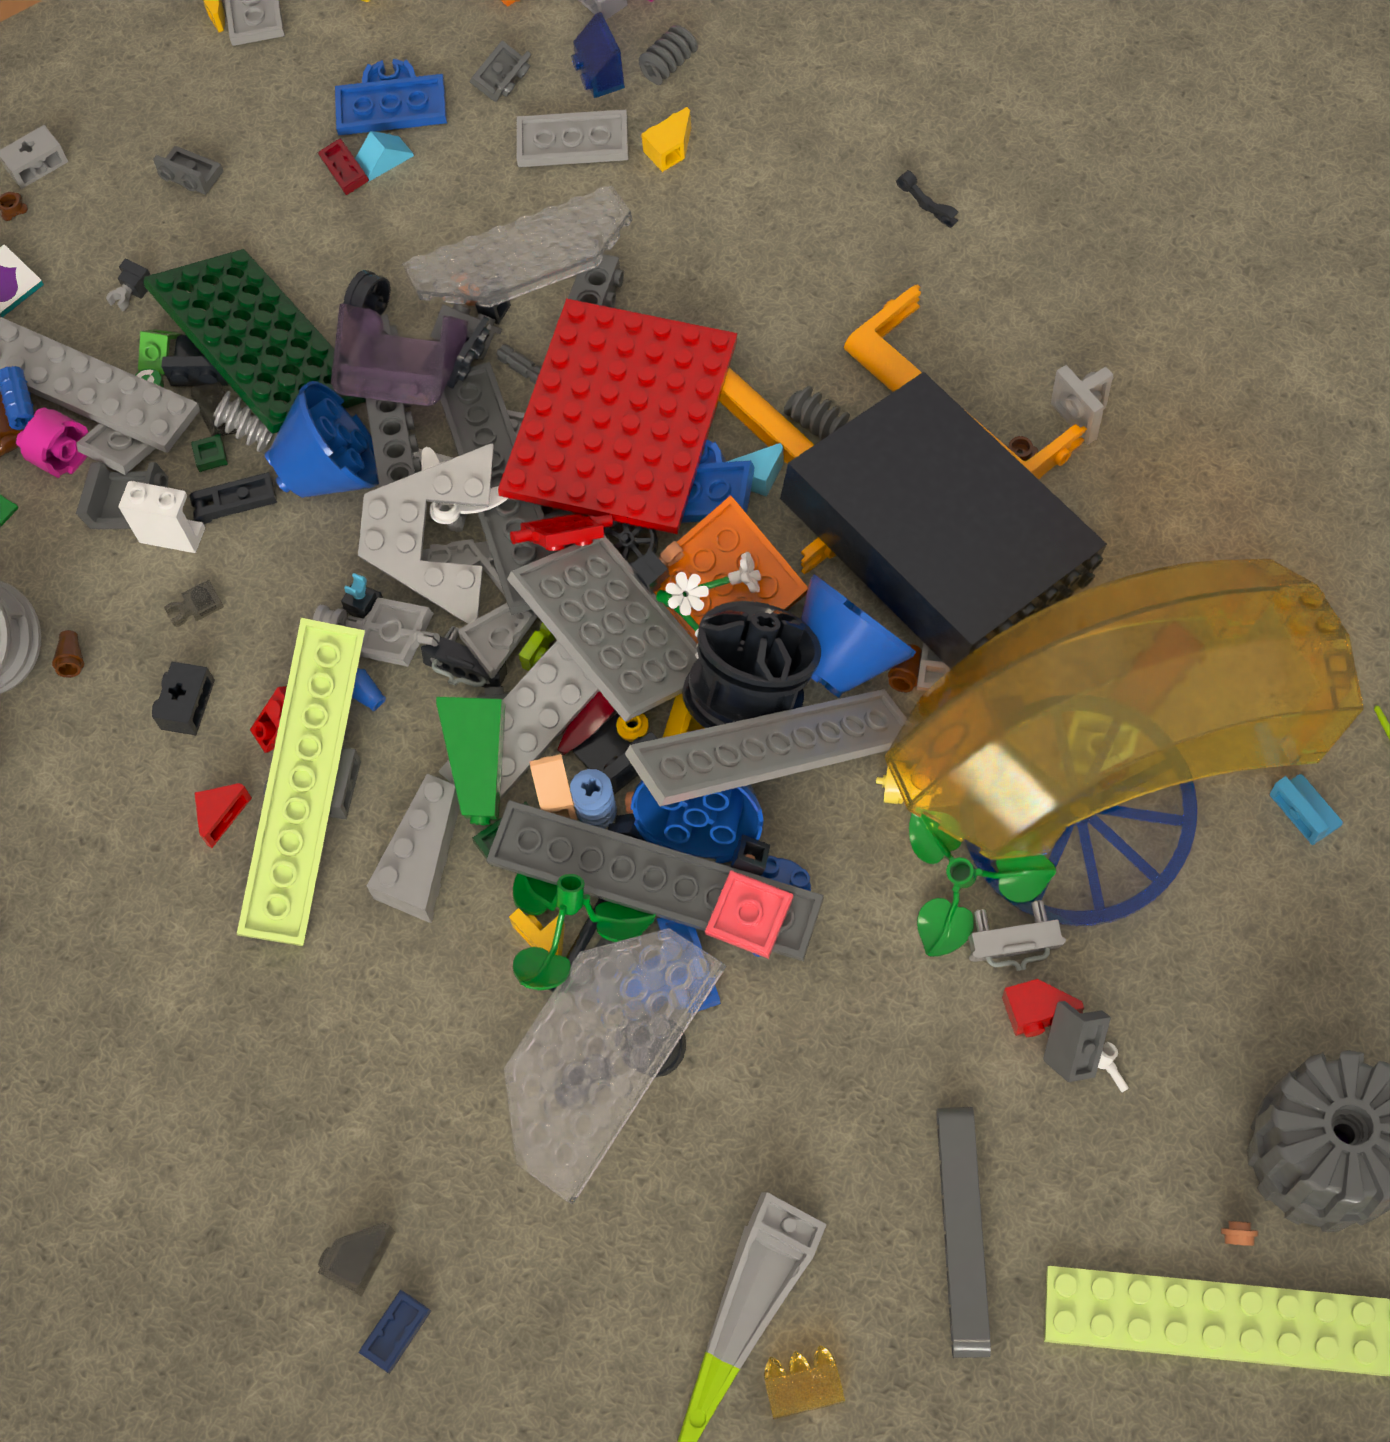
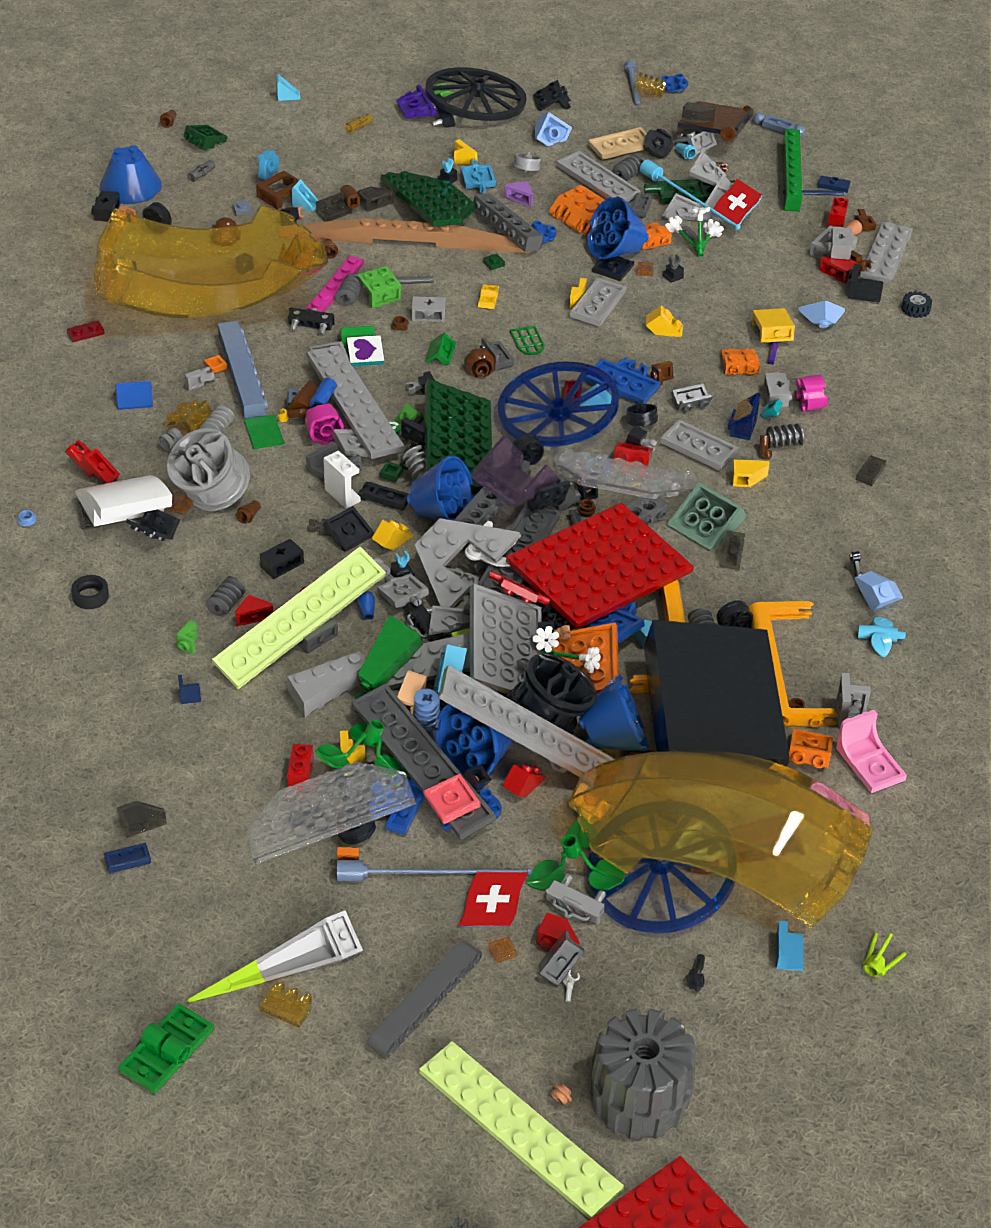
camera: 30 degrees right, 20 degrees down
(53, 22) = (493, 261): none -> dark green plate
(94, 83) = (488, 296): none -> yellow slope
(104, 210) = (441, 348): none -> green panel
(159, 814) = (225, 596): none -> dark grey piece
(164, 920) = (187, 636): none -> bright green bracket
(174, 195) = (479, 359): none -> reddish brown plant
(215, 129) = (529, 336): none -> green window
(233, 585) = (348, 528): none -> black tile
(244, 1003) = (190, 692): none -> dark blue panel
(300, 554) = (391, 534): none -> yellow slope
(347, 201) = (559, 408): none -> clear blue wheel
(431, 55) = (662, 371): none -> reddish brown bracket
(464, 140) = (642, 414): none -> black wheel
(487, 180) = (637, 437): none -> black piece
(501, 207) = (633, 453): none -> red bracket
(501, 1008) = (300, 764): none -> red brick
(513, 325) = (586, 507): none -> reddish brown plate
(583, 724) = (451, 656): none -> medium azure window
(617, 20) = (772, 409): none -> teal plate
(653, 87) = (764, 443): none -> reddish brown arm
(678, 244) = (707, 517): none -> sand green slope
(682, 1097) = (347, 853): none -> orange plate
(751, 270) = (733, 550): none -> clear smoke slope
(798, 807) = (523, 779): none -> red slope
(811, 36) = (871, 470): none -> clear smoke plate
(845, 373) = (733, 615): none -> black wheel
(903, 1010) = (490, 899): none -> flag
(973, 211) = (878, 590): none -> light blue slope
(986, 1078) = (502, 949): none -> clear orange tile
(1027, 271) = (881, 635): none -> medium azure plant
(1094, 497) = (810, 748): none -> orange plate
(1165, 462) = (865, 753): none -> bright pink bracket
(1246, 938) = (697, 979): none -> black plate

